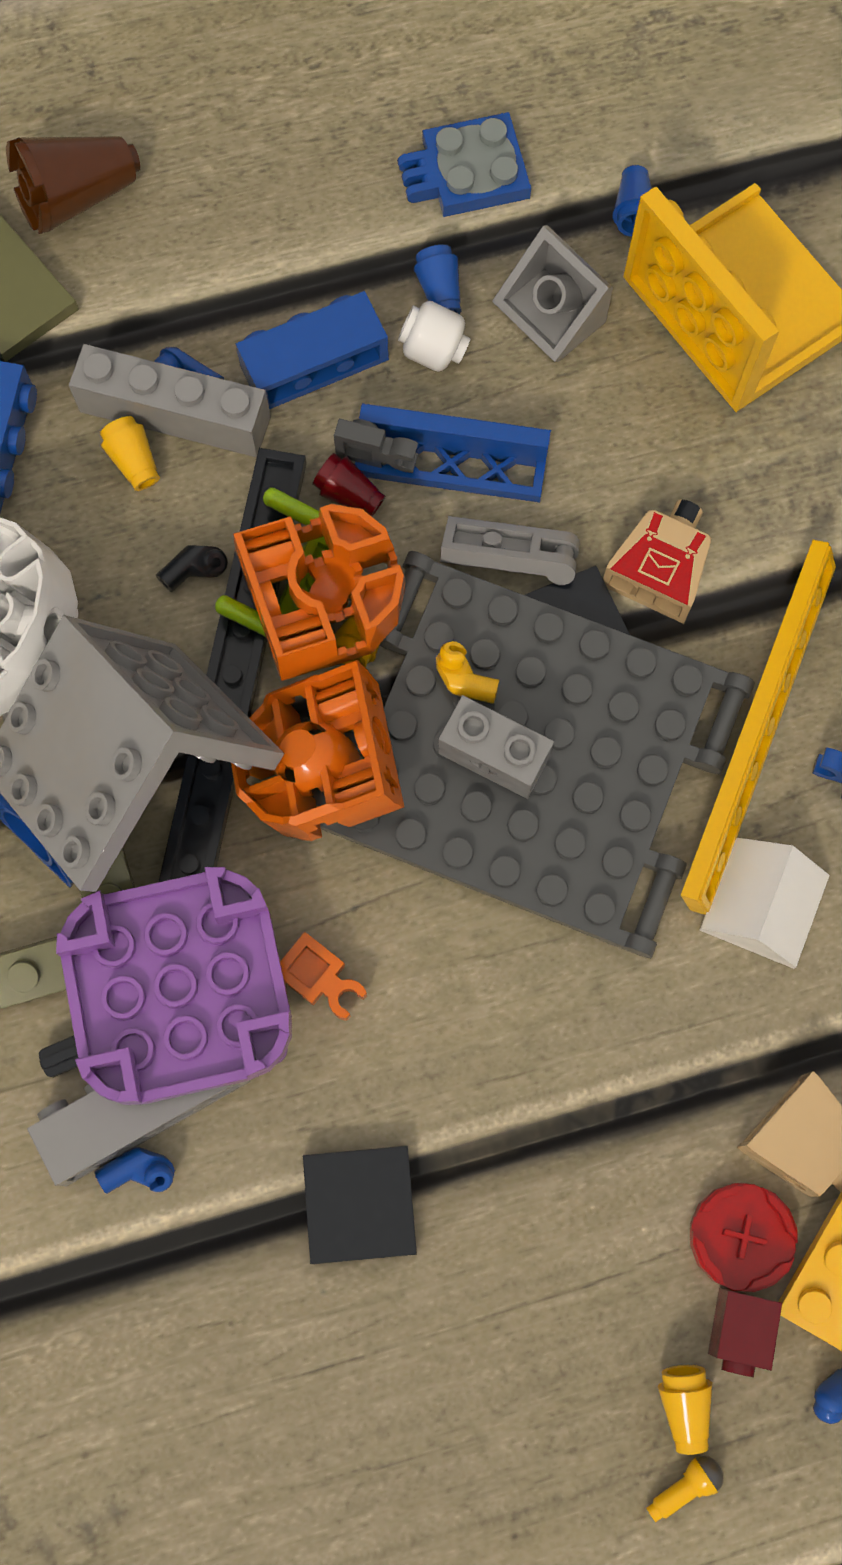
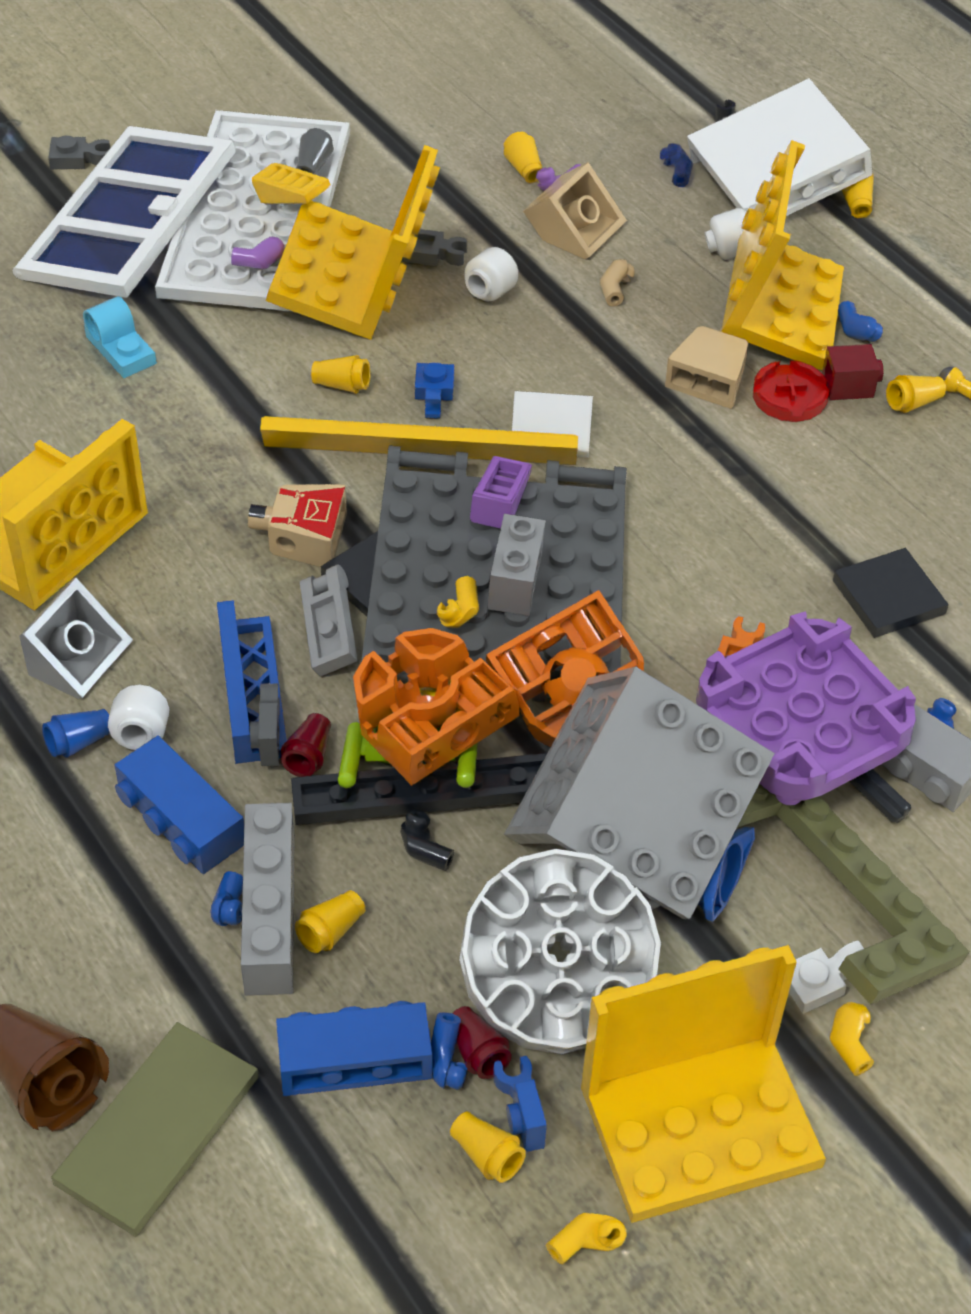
camera: 110 degrees left, 25 degrees down
(624, 793) = (499, 494): none -> medium lavender slope

